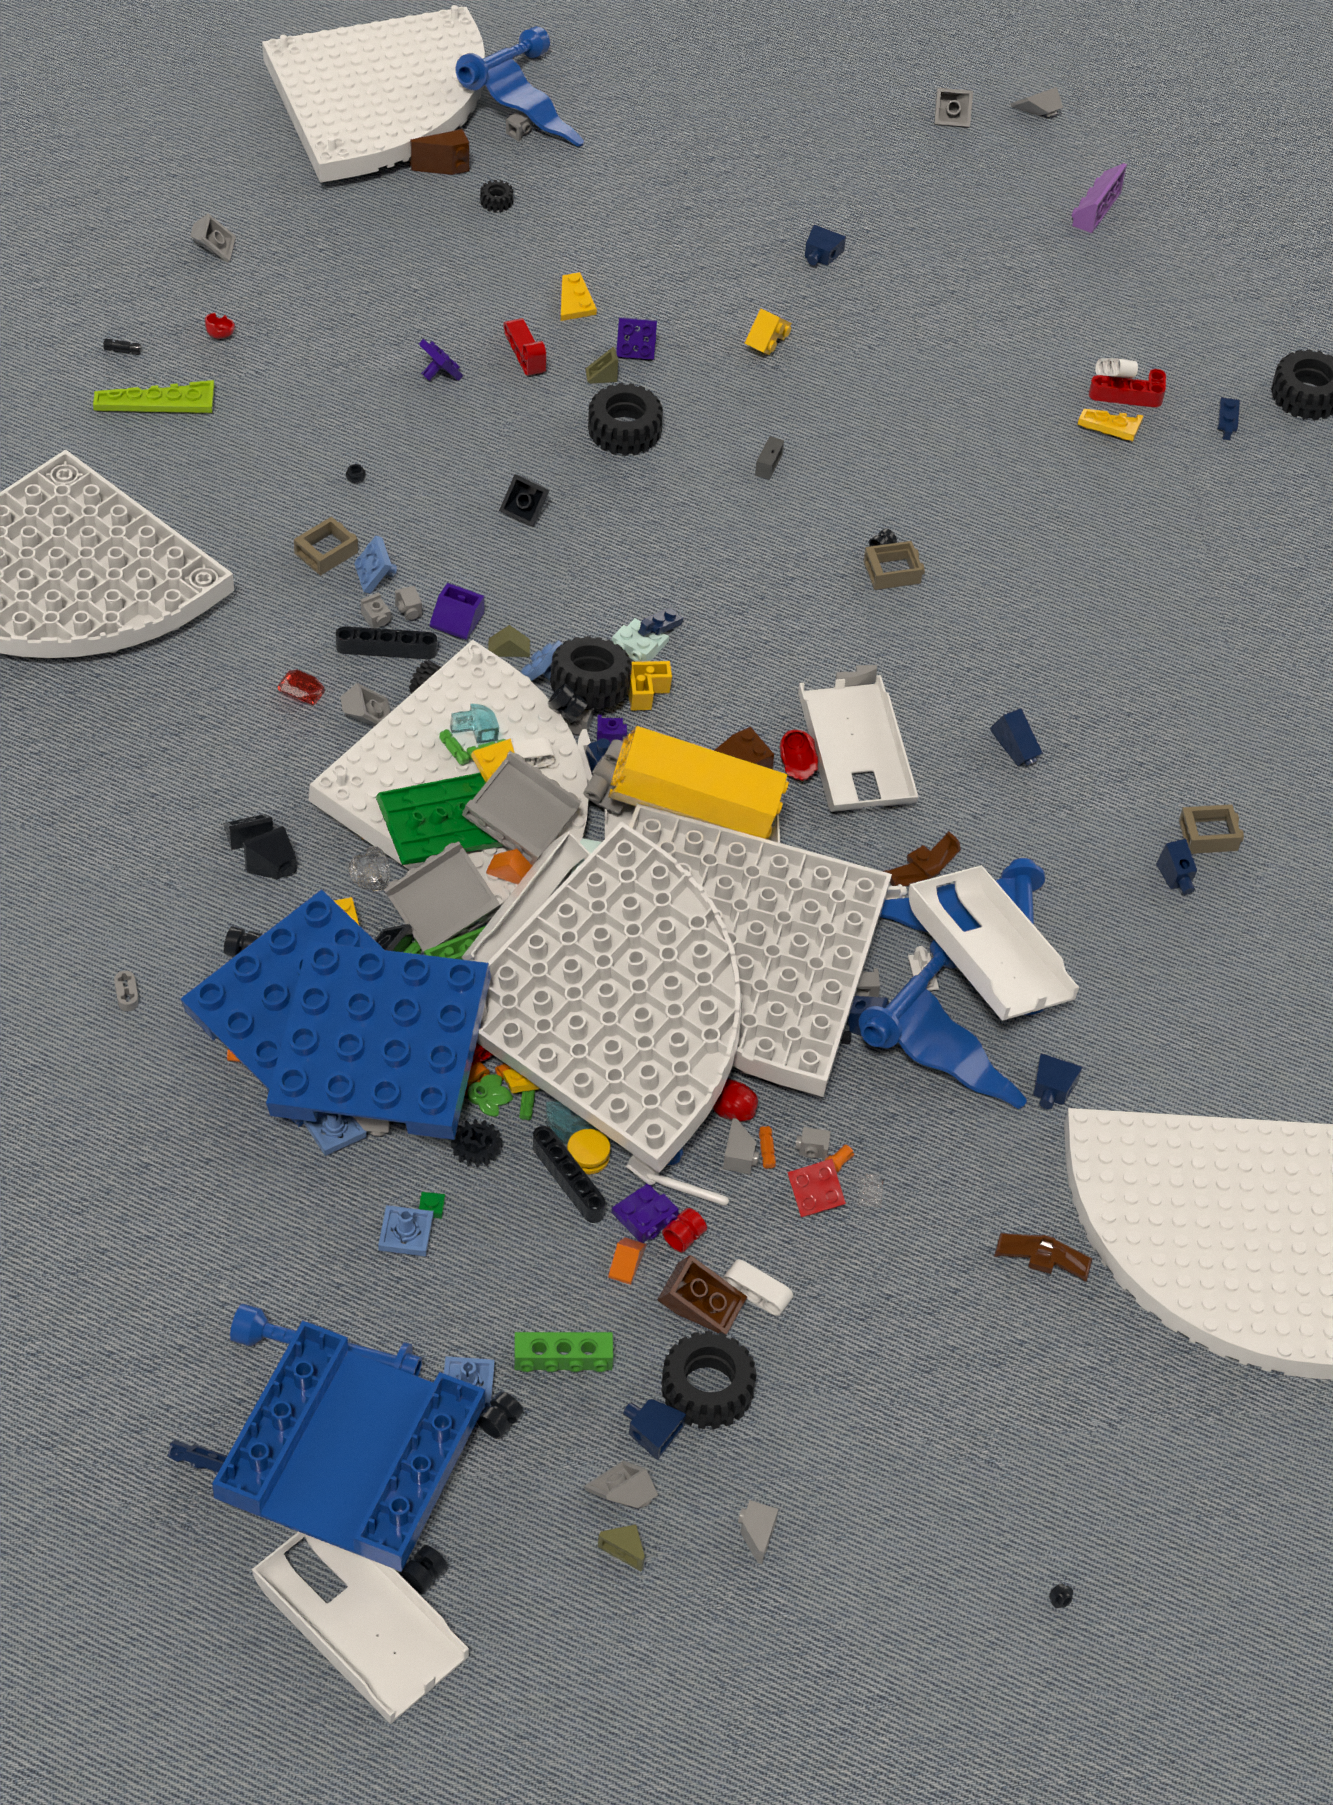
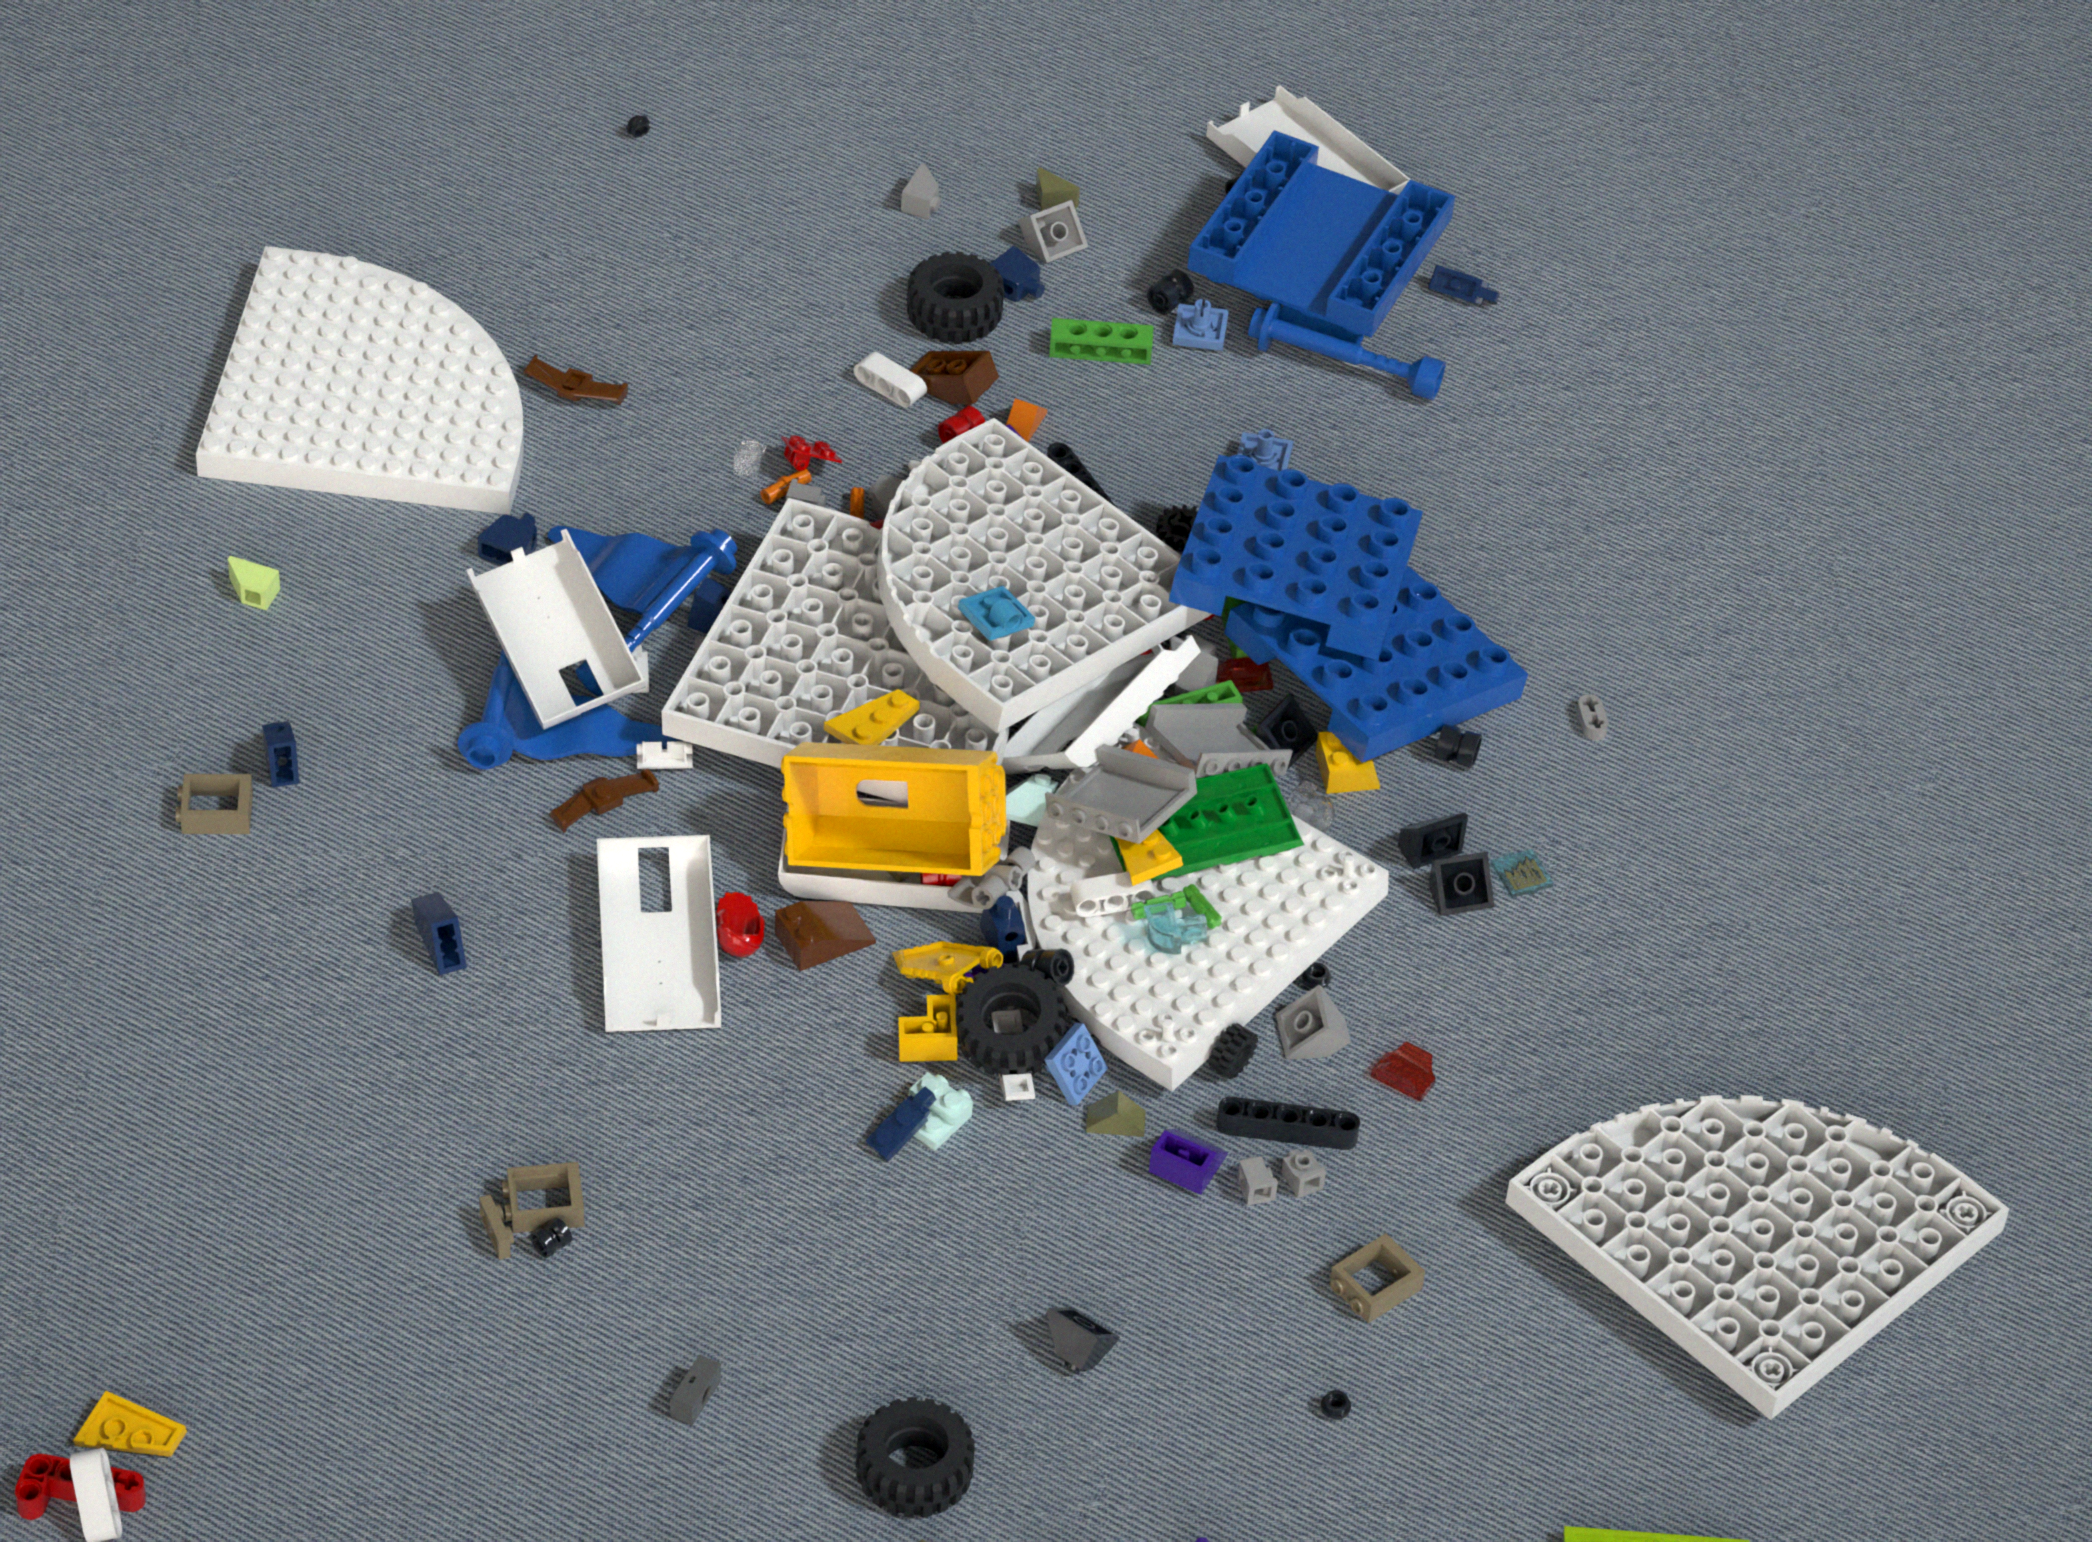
camera: 175 degrees left, 5 degrees down
(198, 853) = (1522, 873): none -> piece
(374, 565) = (1307, 1227): medium blue plate -> none
(634, 906) = (996, 613): none -> dark azure plate
(641, 713) = (945, 963): none -> yellow shield
(722, 861) = (874, 720): none -> yellow wing
(862, 676) = (627, 1033): light grey slope -> none
(926, 550) = (493, 1219): none -> dark tan plate
(1254, 1023) = (253, 582): none -> yellowish green slope

